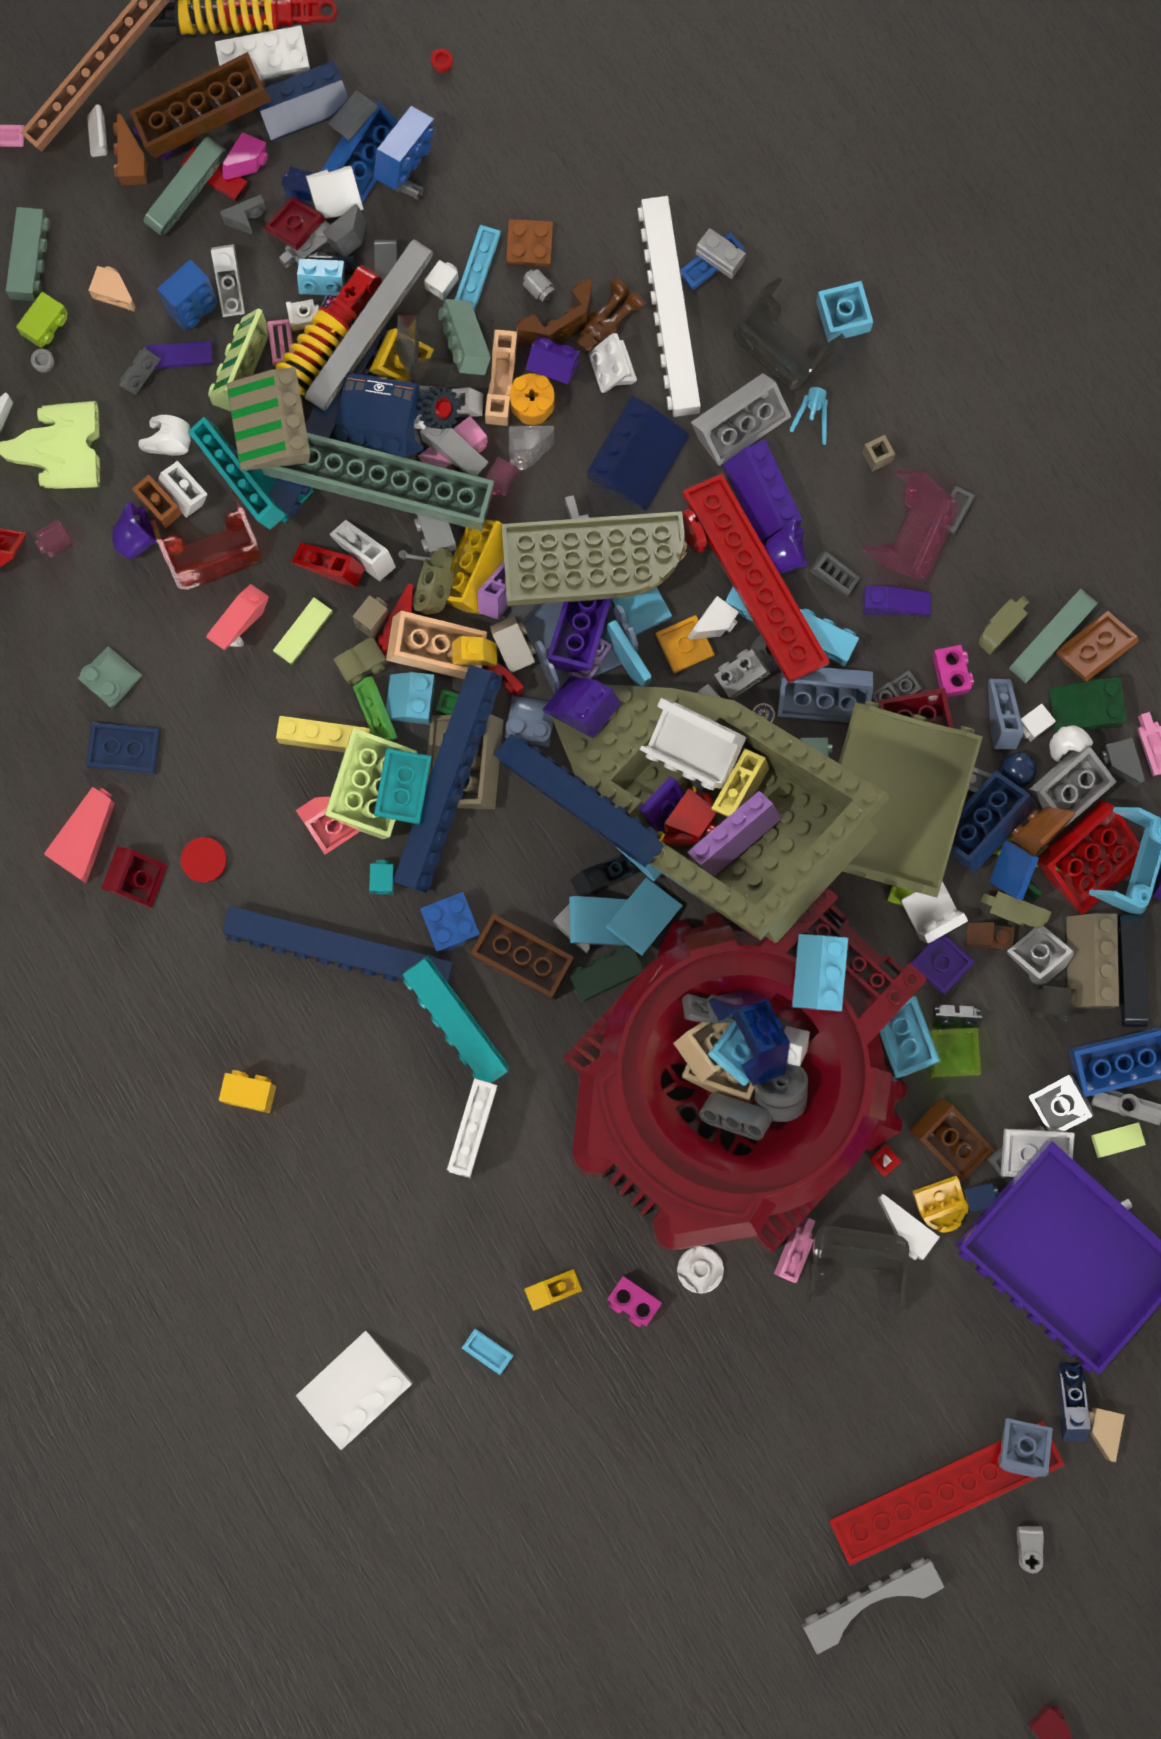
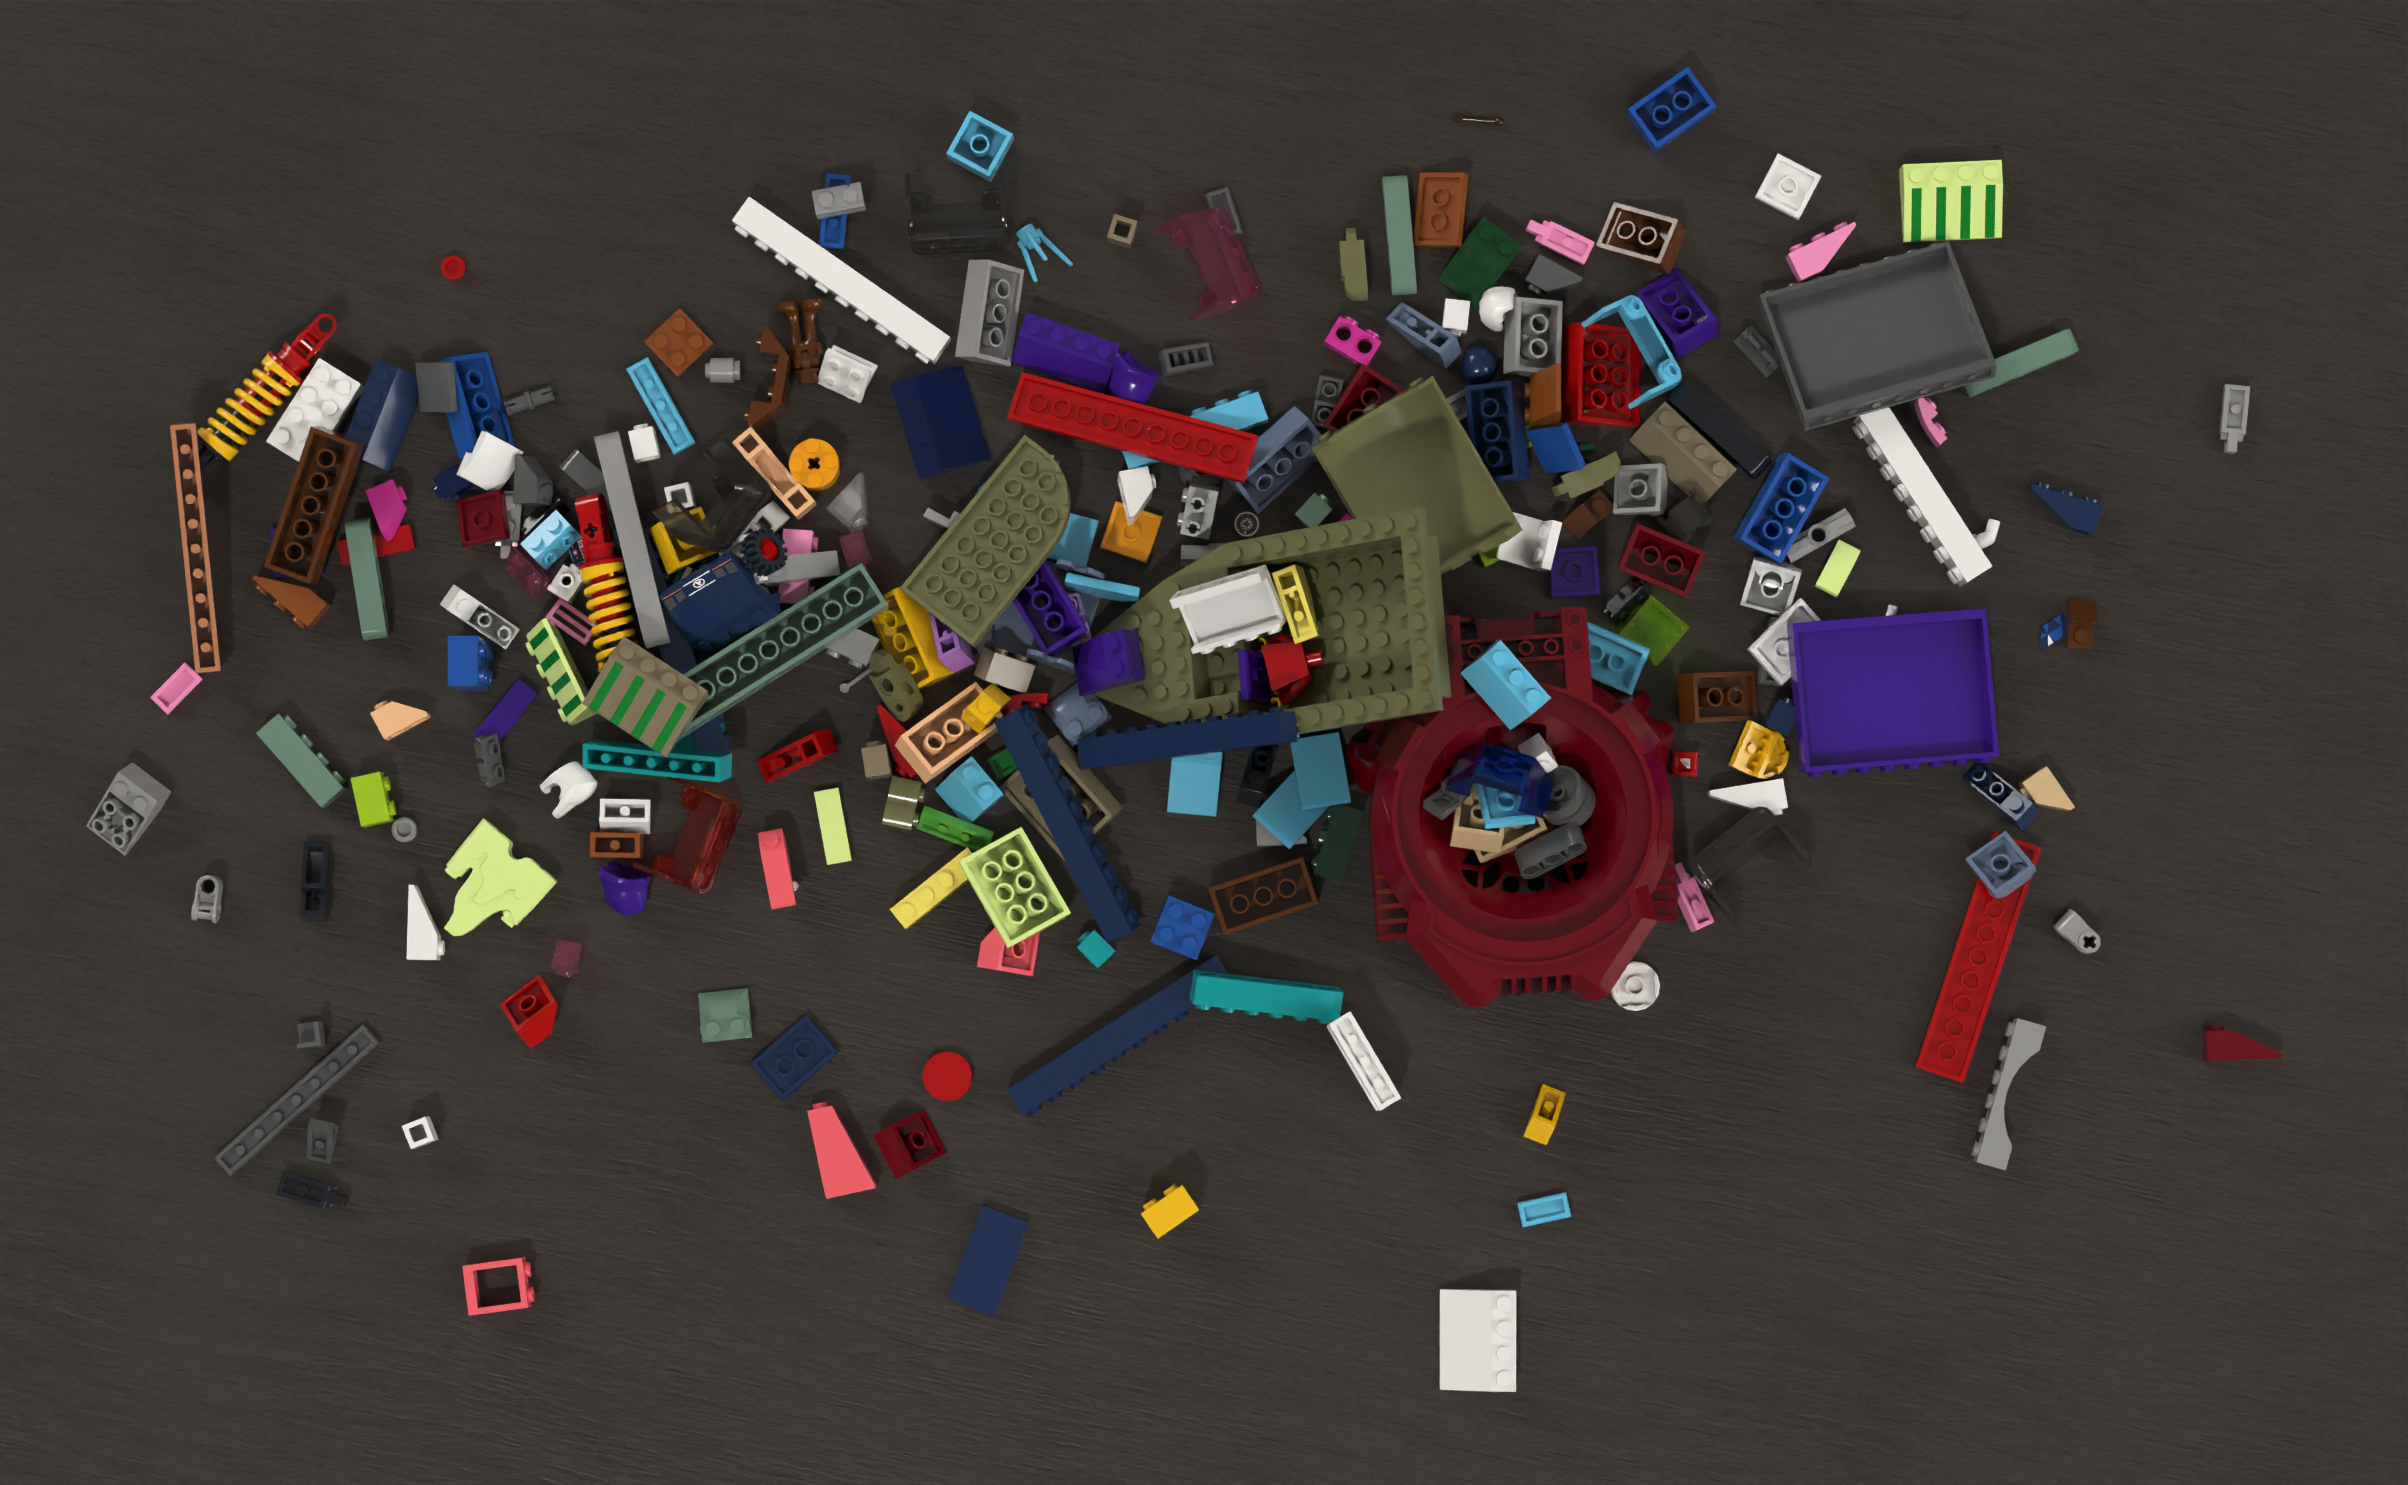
camera: 45 degrees left, 5 degrees up
(97, 132) = (248, 608): white slope -> none
(103, 1003) = (988, 1260): none -> dark blue tile
(238, 215) = (432, 559): dark grey slope -> none
(286, 278) = (519, 566): none -> clear pink hinge
(364, 550) = (812, 716): white slope -> none
(402, 786) = (1041, 864): teal tile -> none
(403, 148) = (508, 372): blue brick -> none
(429, 331) = (683, 493): none -> white brick
(464, 336) = (715, 473): sand green brick -> none
(553, 360) = (801, 420): dark purple slope -> none
(558, 840) = (1195, 784): none -> medium azure slope
(637, 1296) = (1610, 1055): dark pink brick -> none
(693, 532) = (1049, 441): red tile -> none
(735, 834) = (1333, 646): medium lavender brick -> none
(895, 601) = (1255, 332): dark purple slope -> none
(1008, 1012) = (1661, 560): none -> dark red slope

